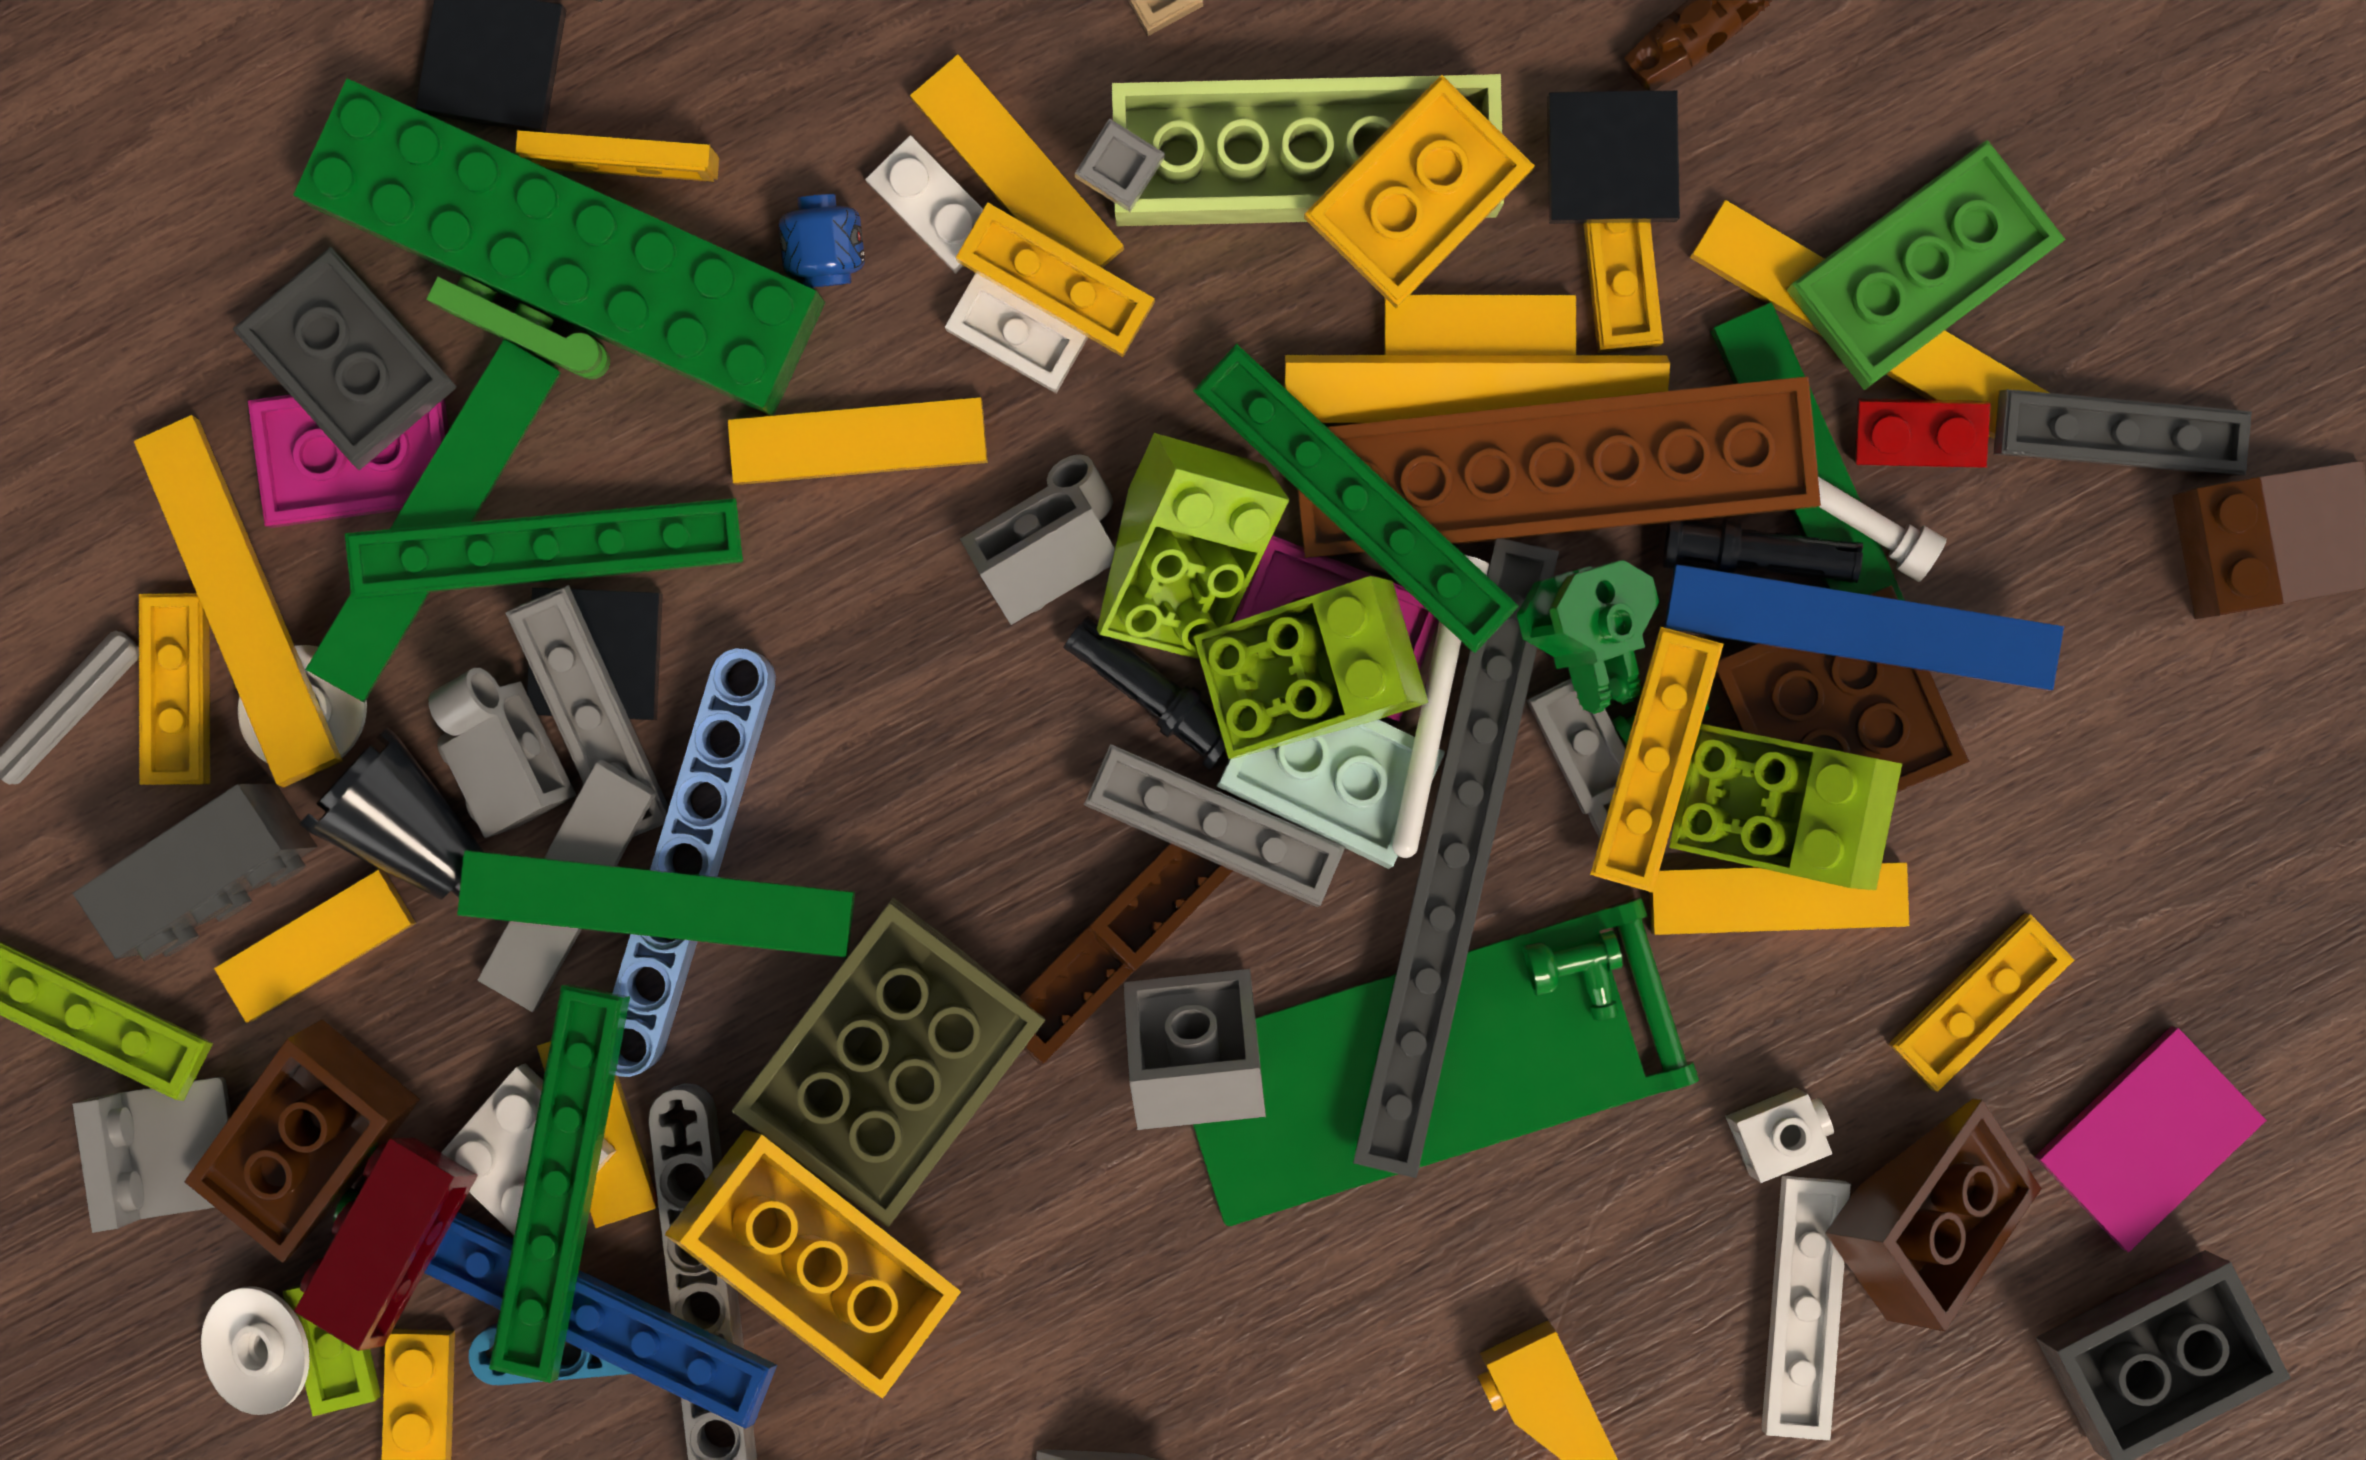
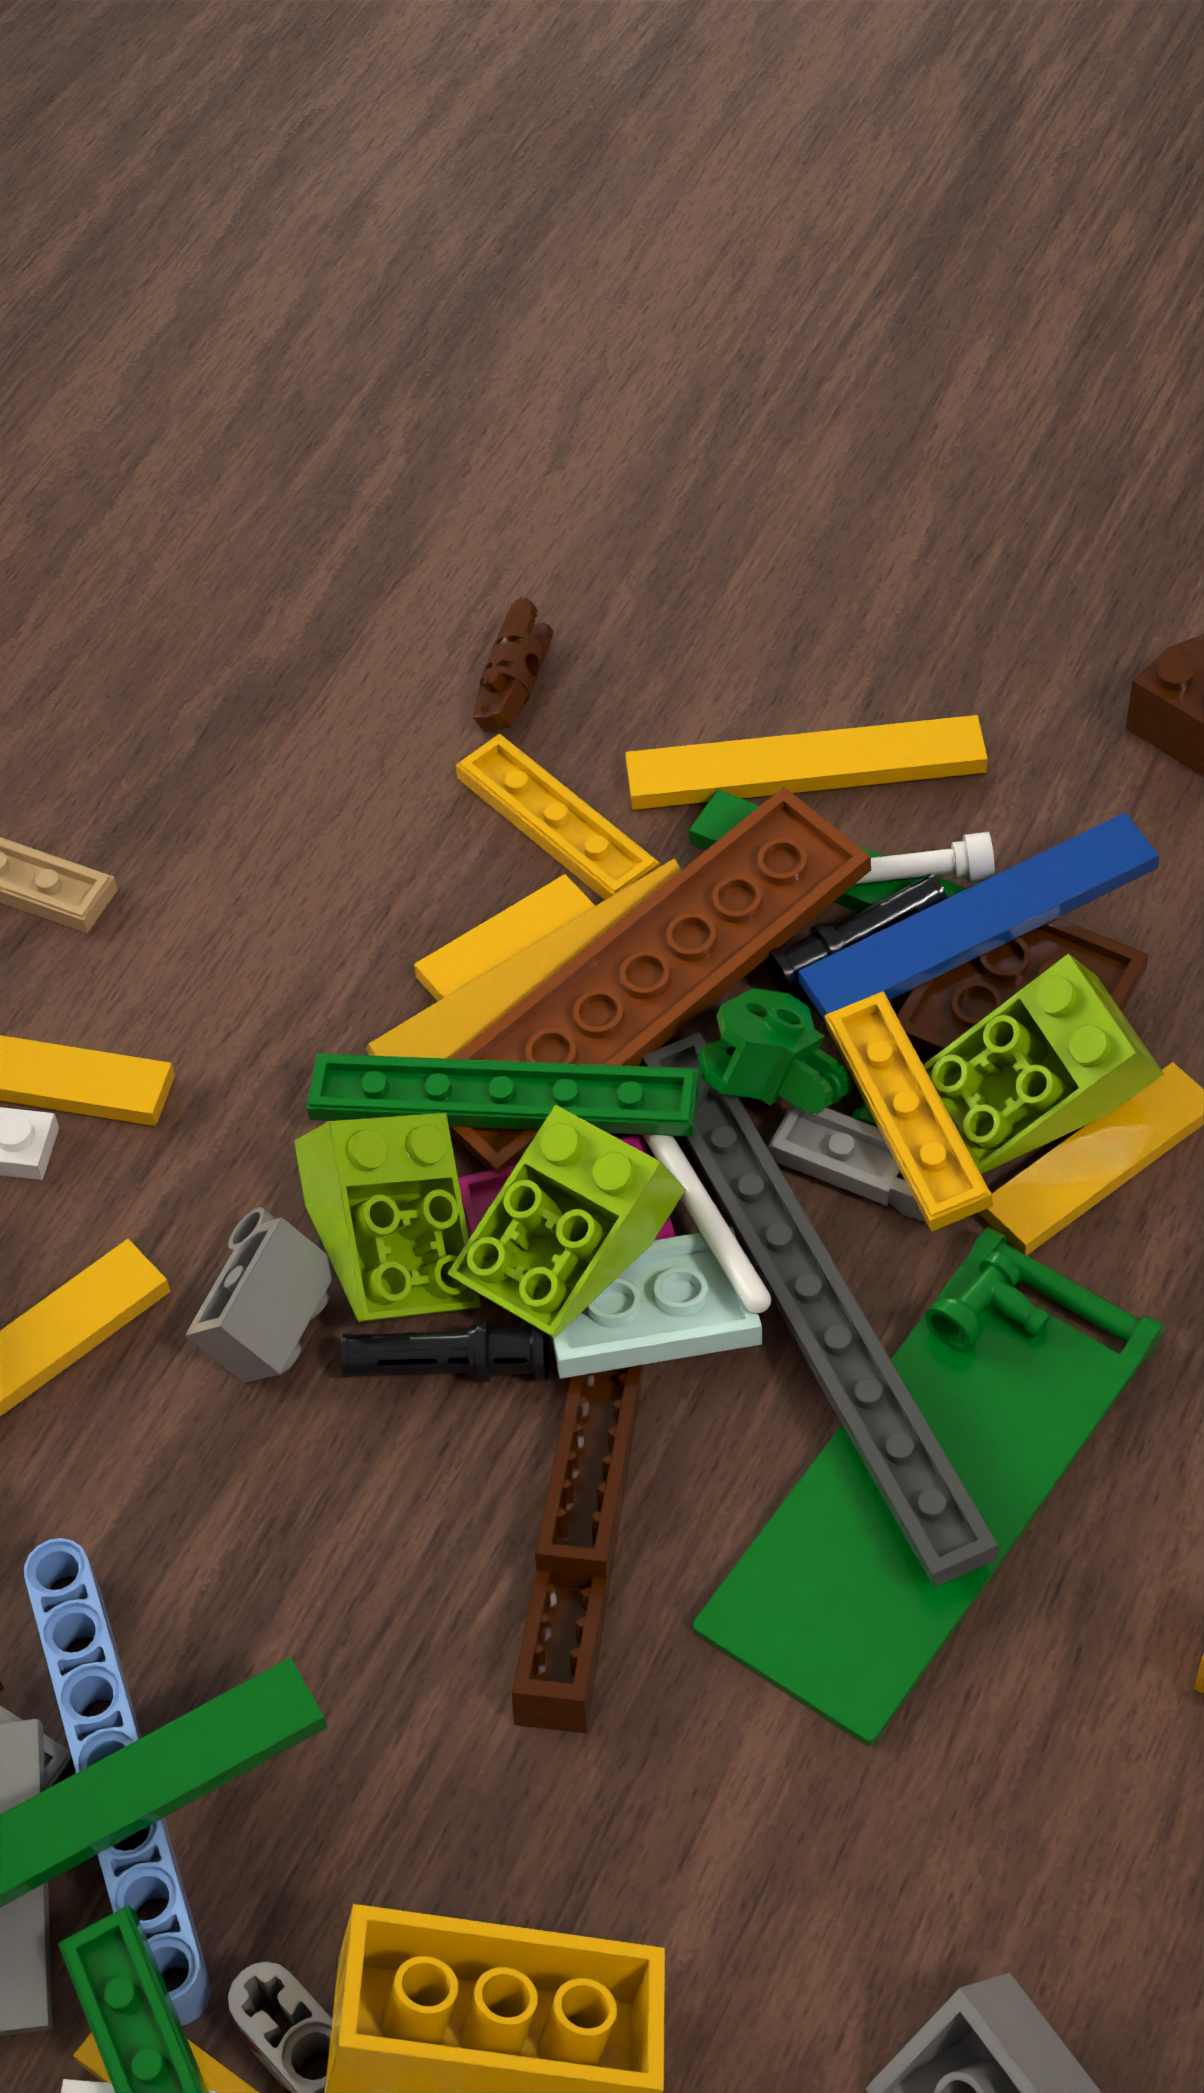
camera: 30 degrees left, 35 degrees down
(889, 1063) = (434, 1784): olive slope -> none
(1015, 333) = (124, 1175): white plate -> none
(1055, 279) = (129, 1107): yellow plate -> none
(1119, 165) = (122, 978): light grey tile -> none
(1193, 1049) = (717, 1596): light grey slope -> none
(1214, 826) = (582, 1408): light grey tile -> none
(1265, 144) = (269, 905): yellowish green brick -> none
(1418, 191) = (379, 853): yellow tile -> none
(1613, 157) = (516, 772): black tile -> none
(1922, 432) = (905, 793): red plate -> none
(1925, 264) = (808, 699): bright green tile -> none
(2122, 432) = (1042, 706): dark grey tile -> none

